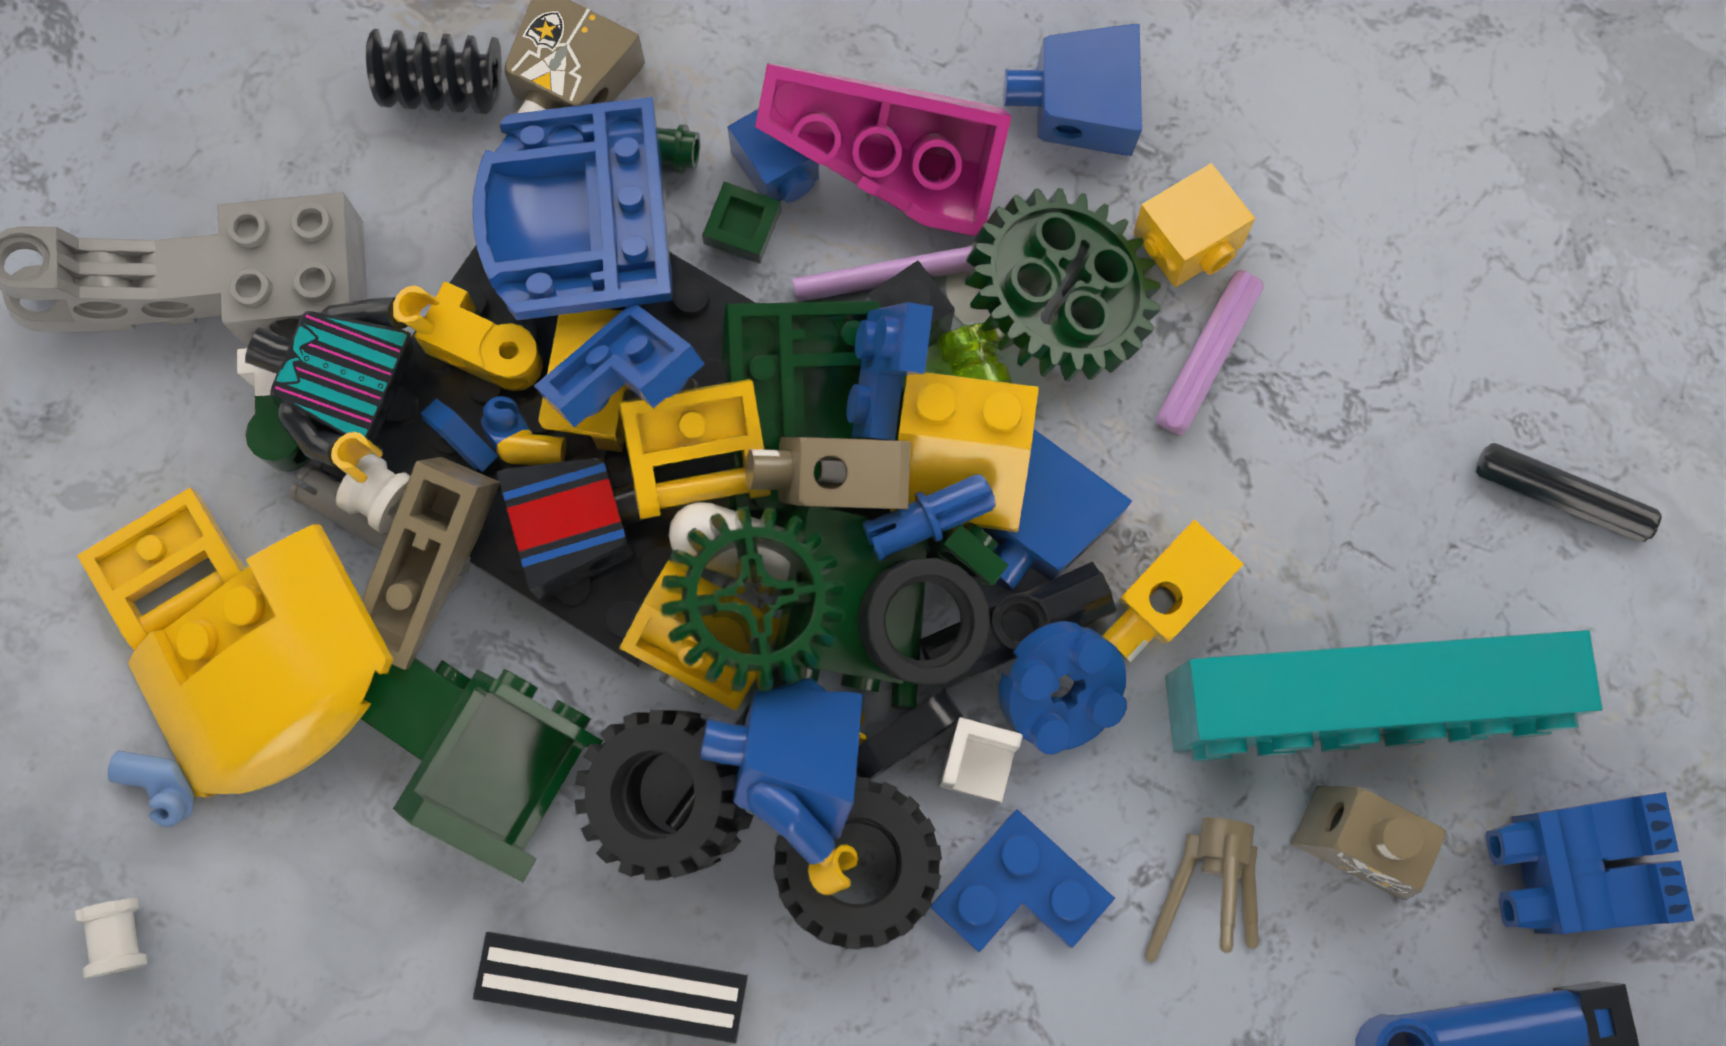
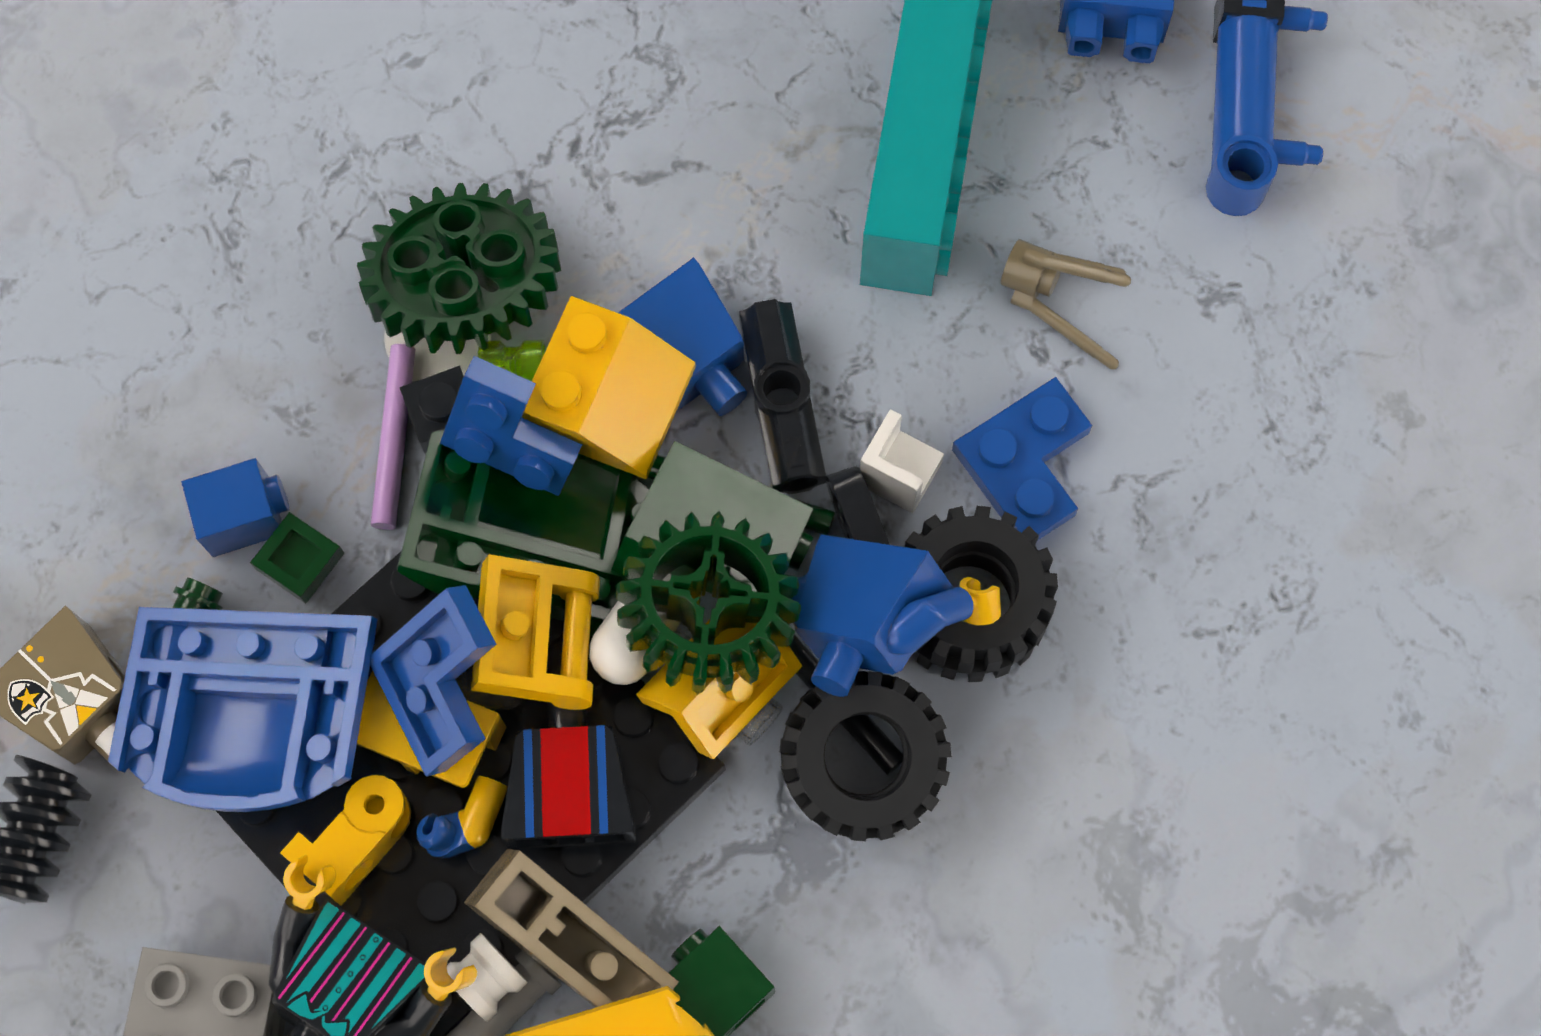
camera: 70 degrees left, 5 degrees down
(458, 435) = (440, 879): blue tile -> none
(495, 771) = (798, 917): dark green panel -> none
(611, 987) = (1033, 862): black tile -> none
(850, 472) = (593, 517): dark tan torso -> none
(904, 145) = (271, 376): dark pink wedge -> none
(929, 516) = (666, 430): blue axle -> none
(971, 550) = (704, 414): dark green plate -> none
(973, 619) = (774, 422): black tyre -> none
(1084, 89) = (265, 198): blue torso -> none
(1090, 704) = (861, 394): blue plate -> none
(1192, 571) = (778, 224): yellow torso -> none
(1194, 226) = (438, 137): yellow head -> none
(1209, 353) = (563, 160): lavender axle -> none
(1371, 839) = (1062, 132): dark tan torso -> none

